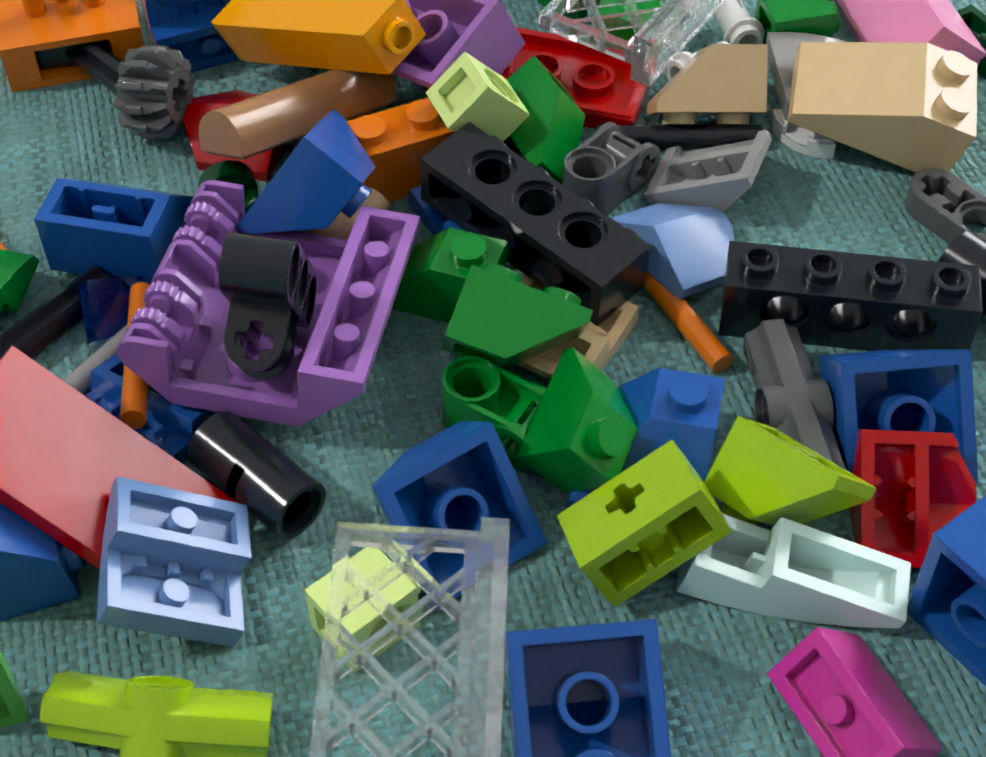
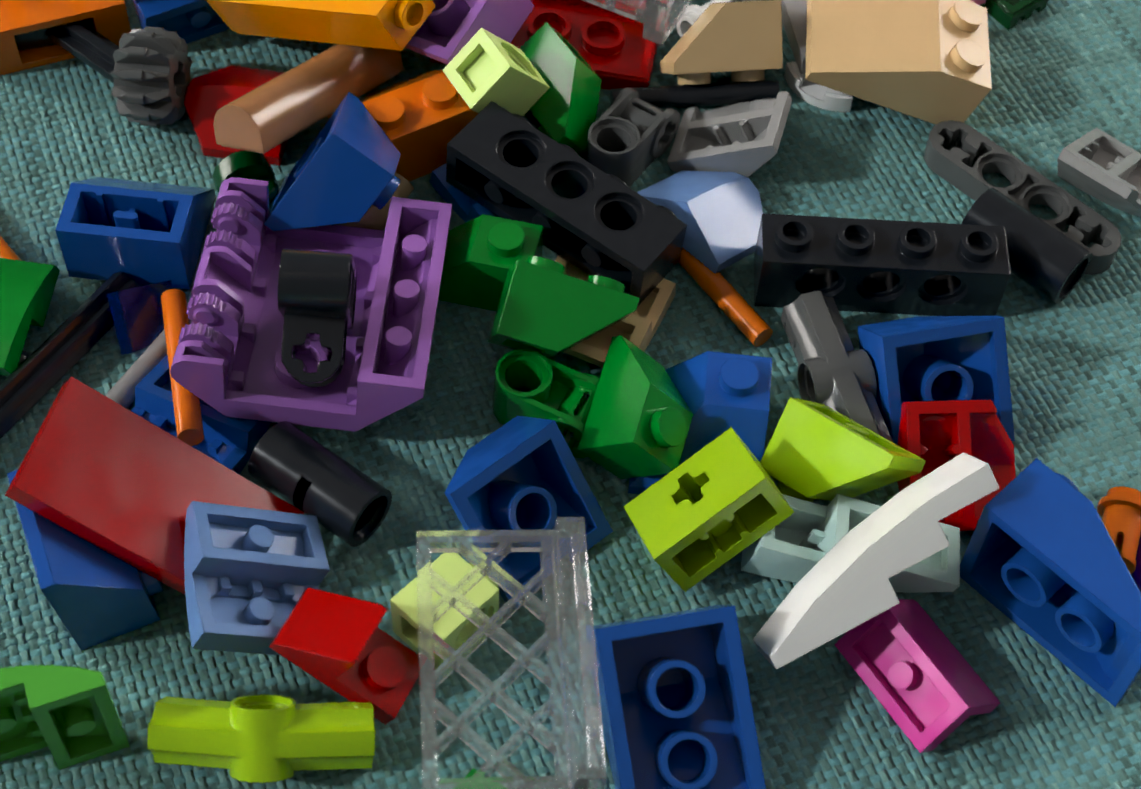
camera: 10 degrees left, 5 degrees up
(253, 638) = (344, 649): none -> red slope
(789, 600) = (854, 575): none -> white slope

